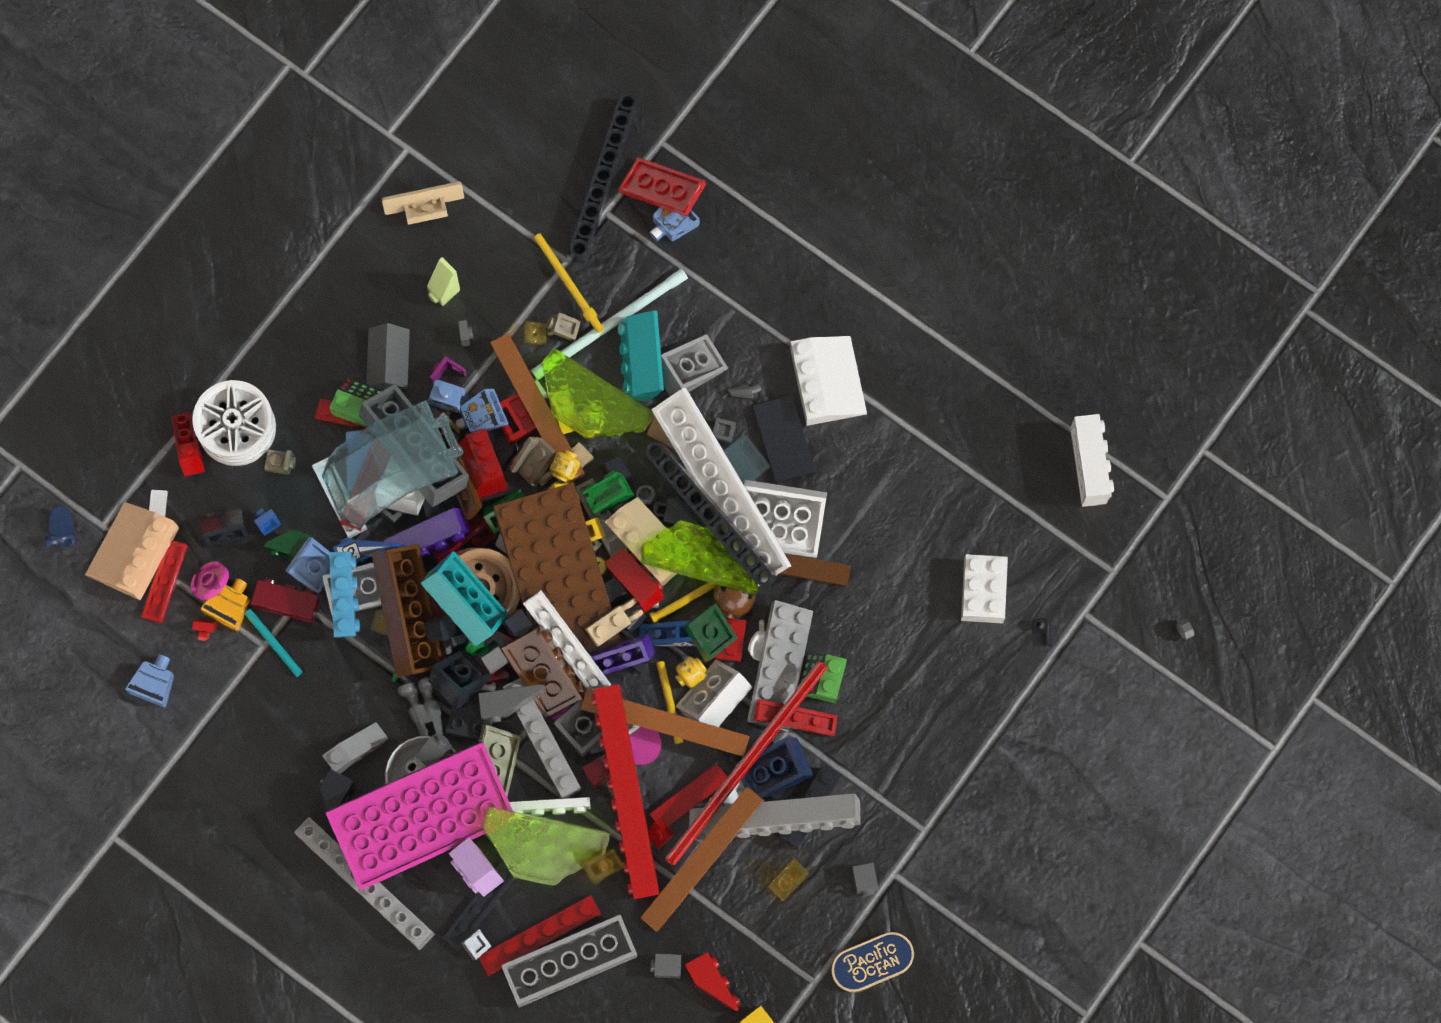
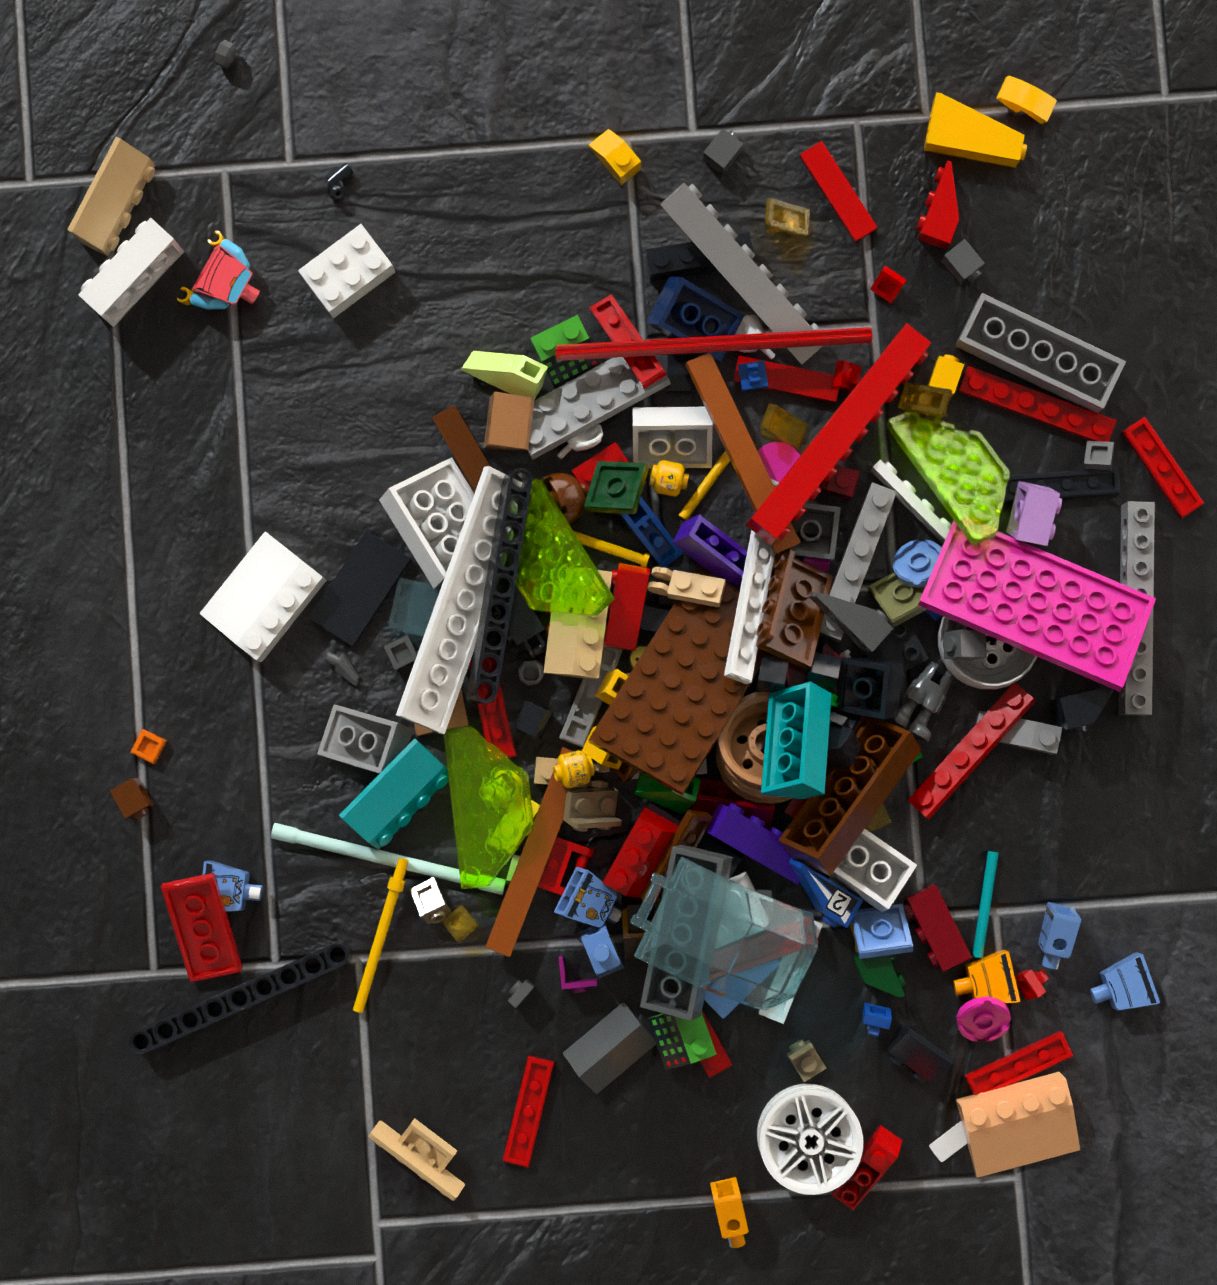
camera: 120 degrees left, 10 degrees up
(60, 528) = (1059, 1215): dark blue piece -> none
(218, 667) = (1062, 924): none -> medium blue torso
(236, 345) = (730, 1211): none -> light orange torso
(342, 593) = (891, 870): dark azure brick -> none
(369, 710) = (971, 750): none -> red plate
(394, 283) = (528, 1111): none -> red tile
(434, 979) = (1162, 467): none -> red tile
(443, 283) = (491, 1057): yellowish green slope -> none
(511, 774) = (915, 562): none -> medium blue tile
(607, 493) = (564, 704): green hinge -> none
(607, 893) = (946, 373): none -> yellow brick
(635, 452) = (494, 717): none -> red tile
(662, 767) = (782, 426): none -> clear yellow slope
(693, 908) = (888, 284): none -> red plate
(702, 859) = (838, 308): dark orange tile -> none
(708, 776) = (753, 376): none -> blue tile
(772, 209) = (132, 799): none -> reddish brown brick
(779, 930) = (838, 191): none -> red tile
(796, 244) = (148, 746): none -> orange tile
(806, 605) = (508, 422): none -> medium nougat slope
(839, 630) = (507, 372): none -> yellowish green slope
(872, 962) = (793, 82): tile -> none
(919, 811) = (616, 156): none -> yellow slope
(1042, 512) = (222, 278): none -> torso
(1148, 487) = (112, 197): none -> tan slope

